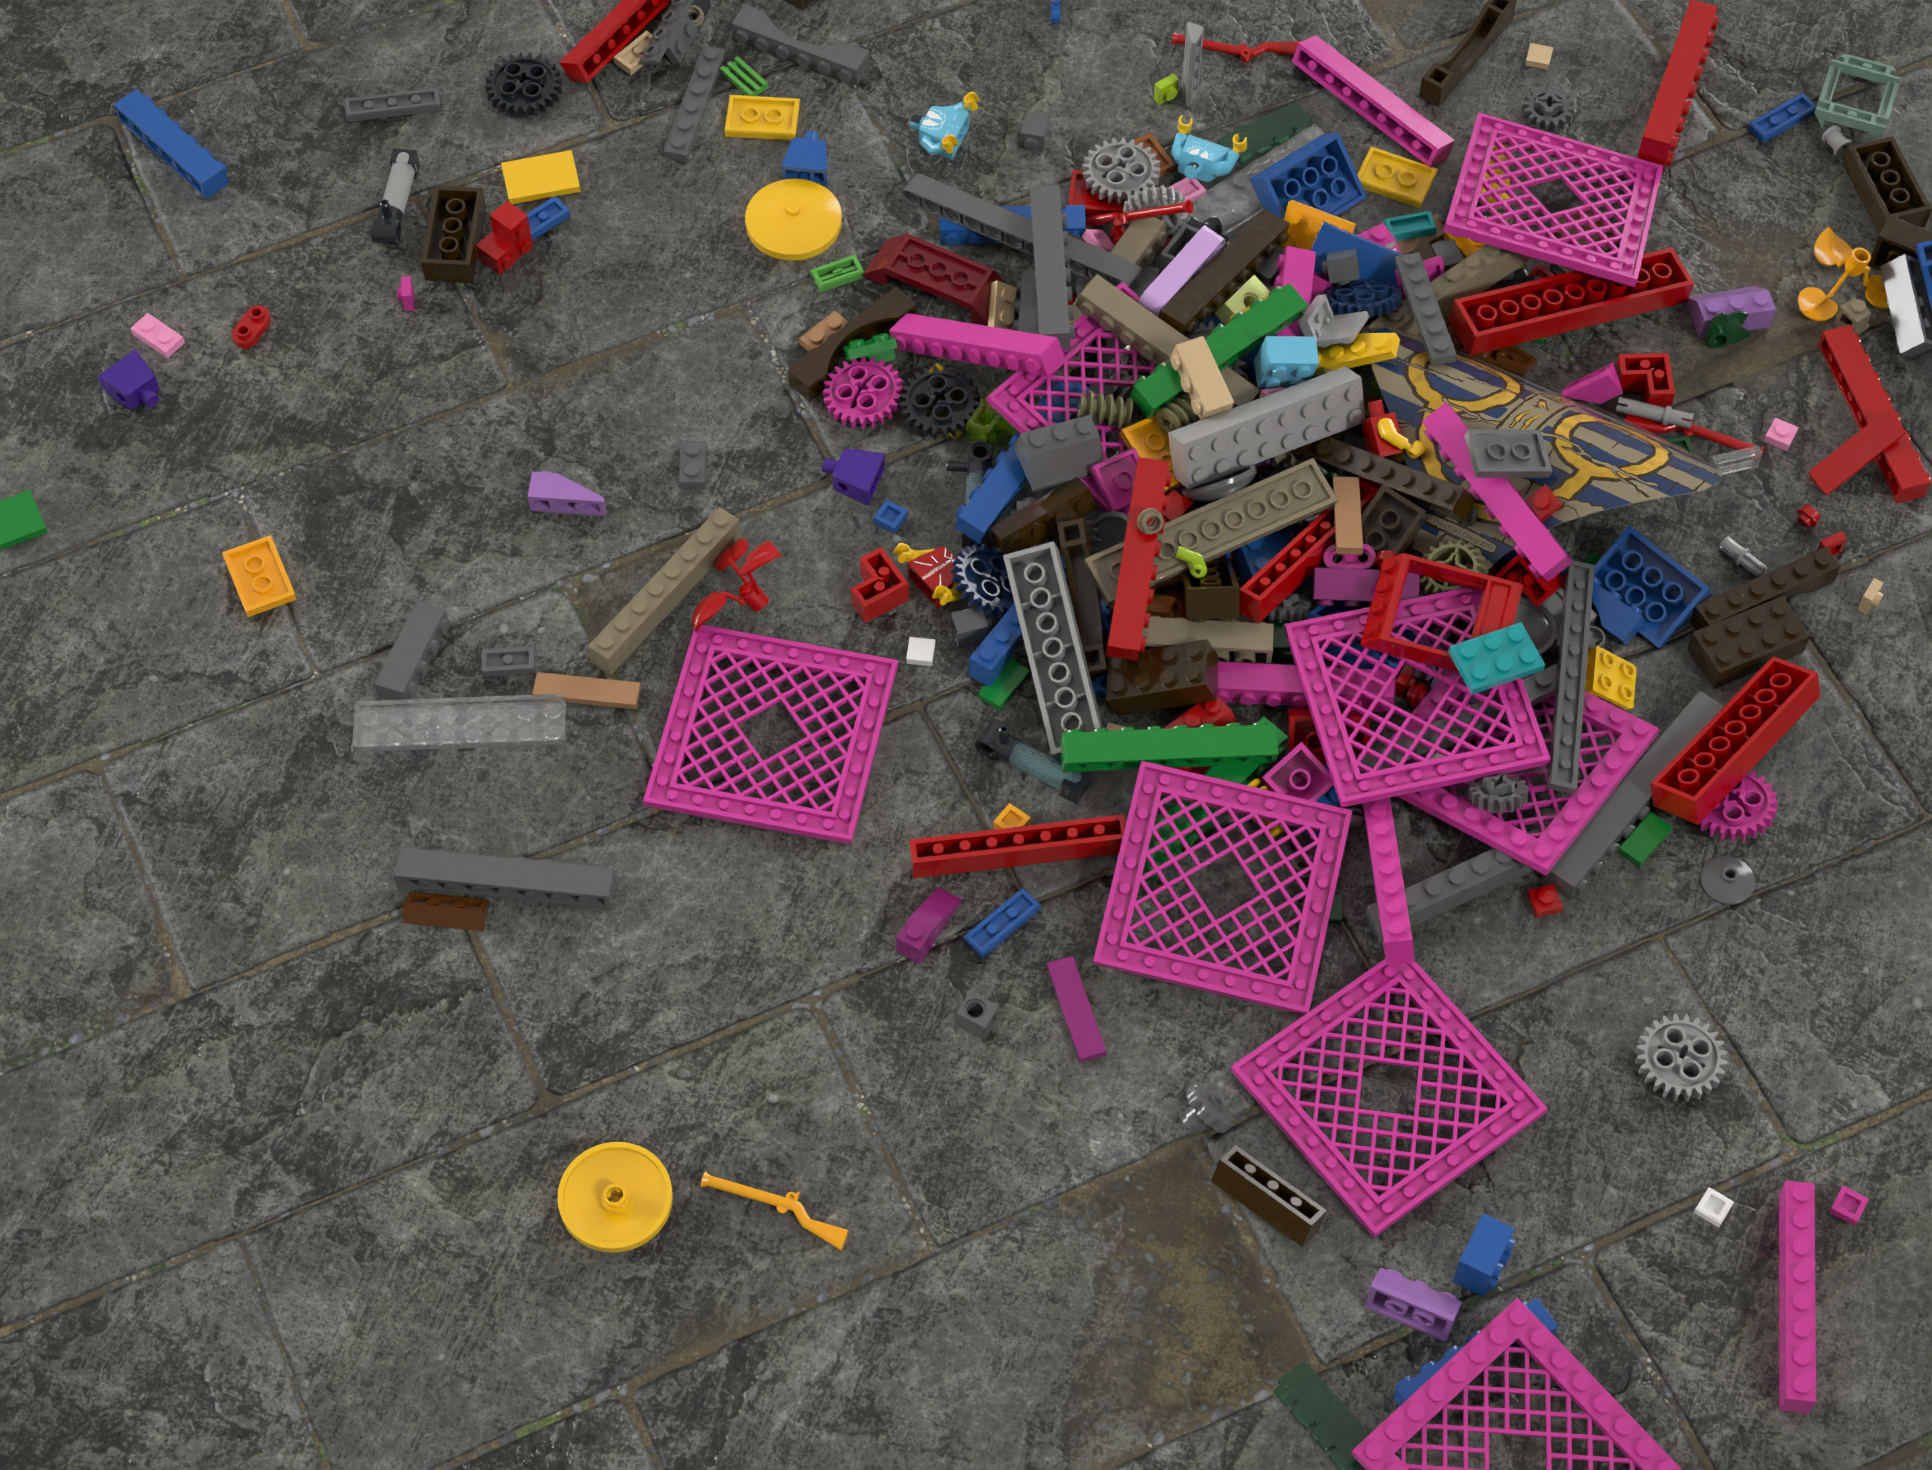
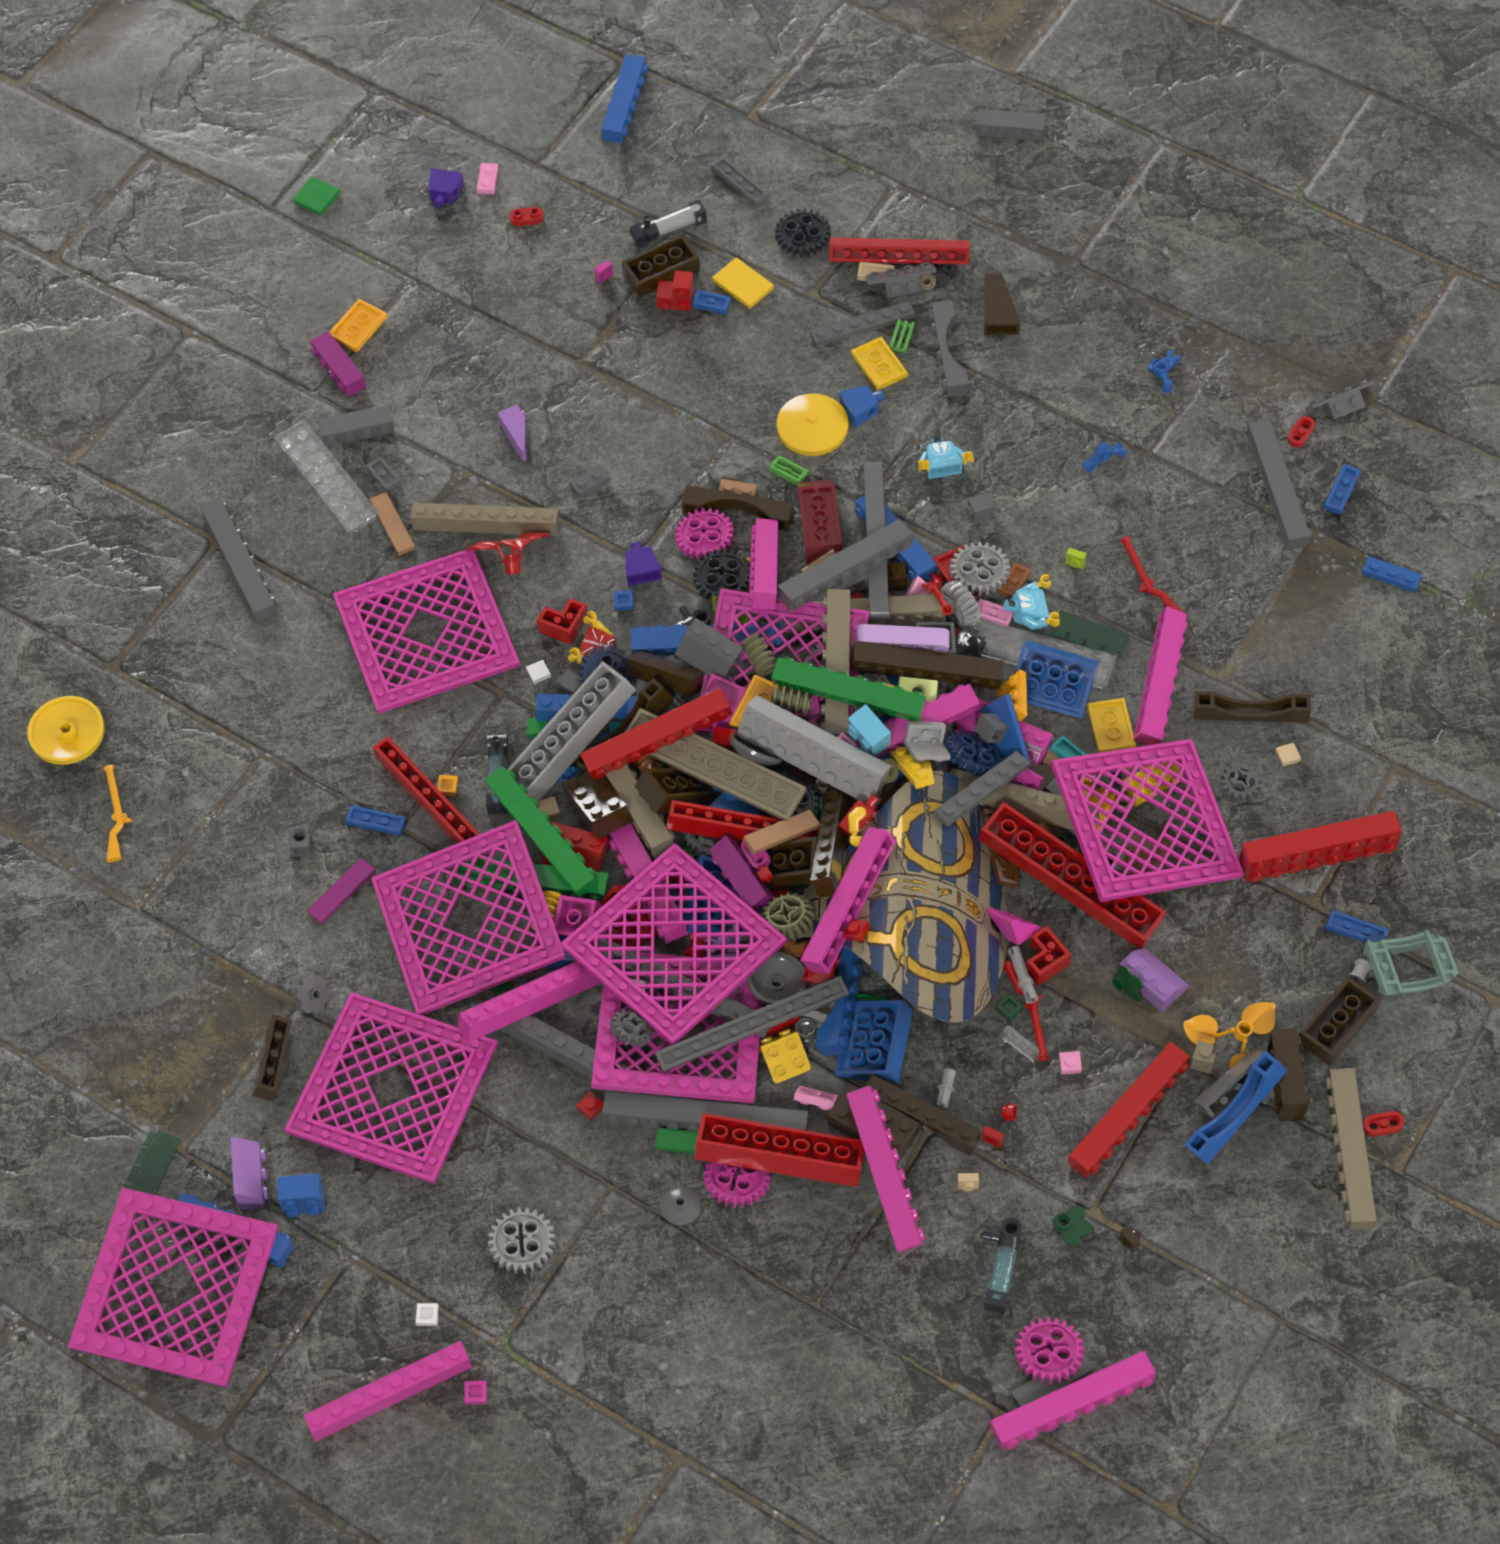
camera: 60 degrees right, 0 degrees up
(300, 625) = (337, 364): none -> magenta brick
(445, 911) = (201, 545): reddish brown slope -> none
(880, 347) = (740, 520): green bracket -> none
(926, 925) = (346, 781): magenta slope -> none
(1156, 523) = (672, 722): dark tan plate -> none
(1192, 61) = (1089, 554): light grey slope -> none
(1194, 560) = (680, 767): lime arm -> none
(1201, 378) = (808, 688): tan brick -> none
(1495, 610) = (744, 953): red window -> none
(1496, 658) = (716, 967): teal plate -> none
(1508, 453) = (869, 885): dark grey plate -> none
(1679, 678) = (816, 1097): none -> bright pink plate
(1824, 653) = (885, 1169): none -> dark pink brick
(1856, 452) = (1079, 1112): red slope -> none

